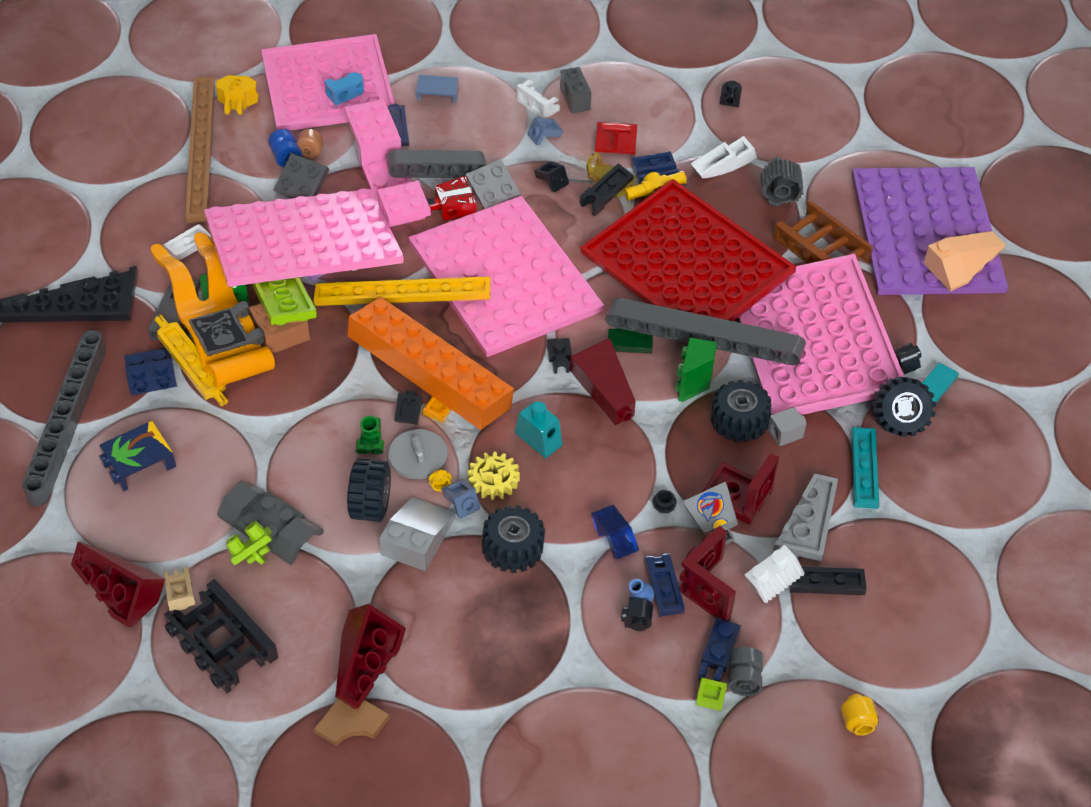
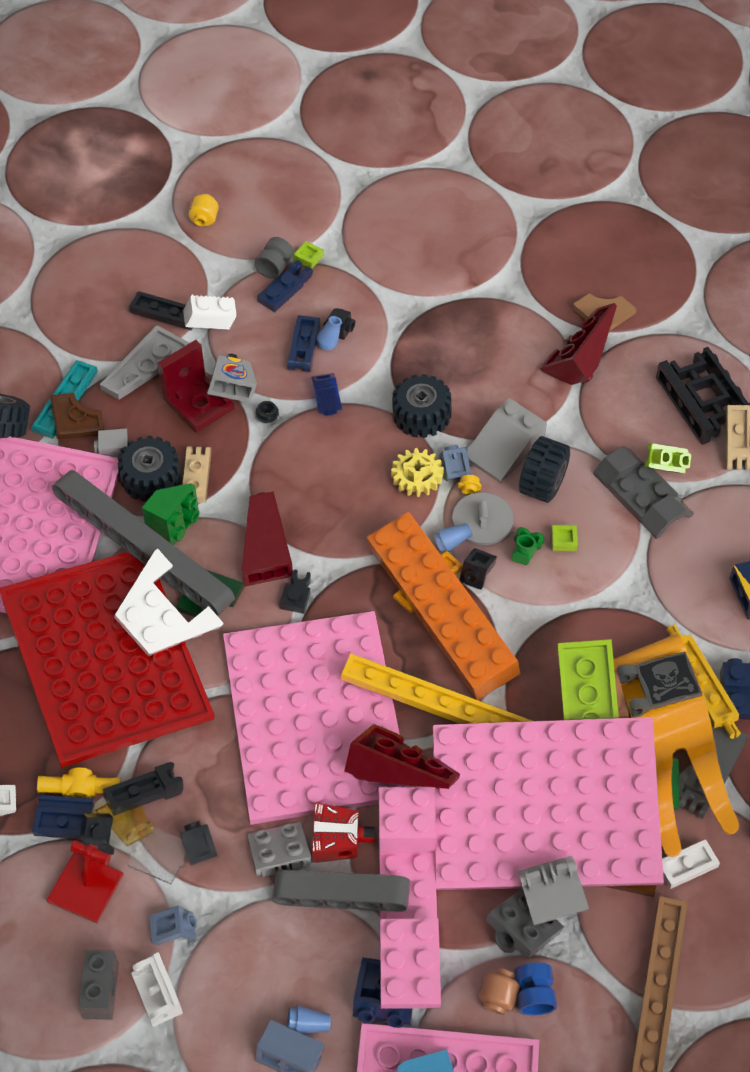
camera: 160 degrees left, 5 degrees up
(285, 186) = (553, 890): none -> light grey hinge
(336, 453) = (564, 538): none -> lime plate
(424, 230) = (384, 758): none -> dark red wedge
(432, 106) = (308, 1020): none -> medium blue cone
(440, 423) = (452, 536): none -> medium blue cone
(539, 429) = (351, 495): teal torso -> none
(621, 153) = (97, 831): none -> black bracket
(660, 277) = (151, 616): none -> white wing
(699, 429) = (197, 471): none -> tan hinge
(703, 586) = (272, 327): dark red bracket -> none
(840, 442) = (73, 419): none -> reddish brown tile

